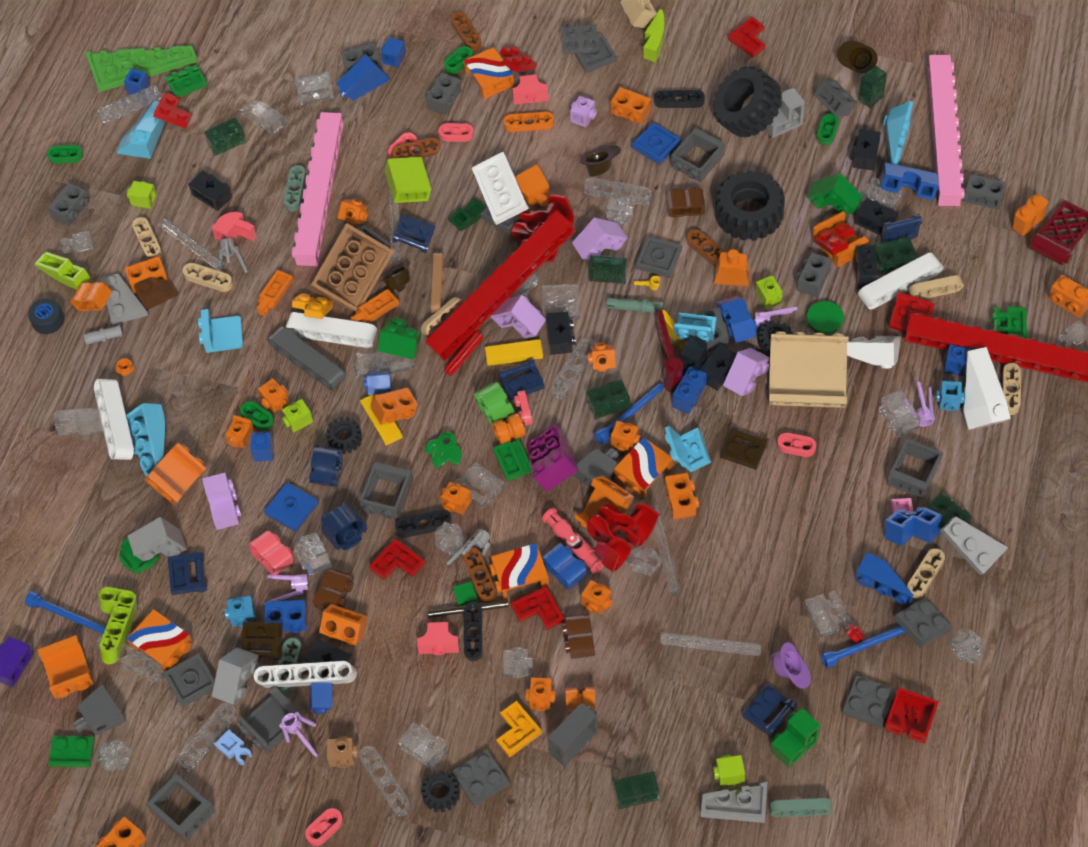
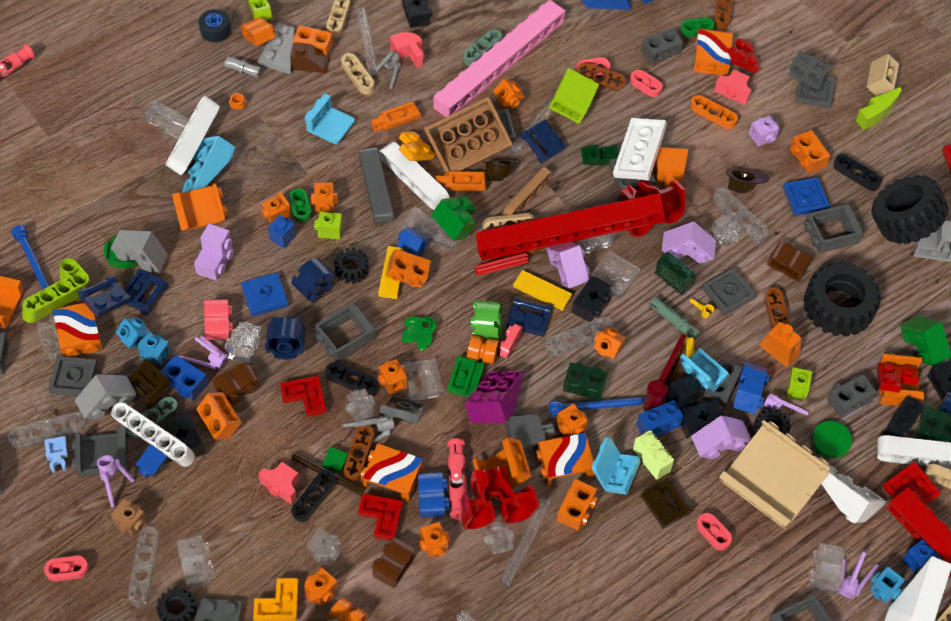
camera: 30 degrees right, 0 degrees up
(167, 600) = (107, 300): none -> dark blue plate
(210, 610) = (132, 331): none -> dark azure brick
(486, 516) = (403, 408): none -> dark grey plate
(706, 418) = (653, 454): none -> yellowish green brick

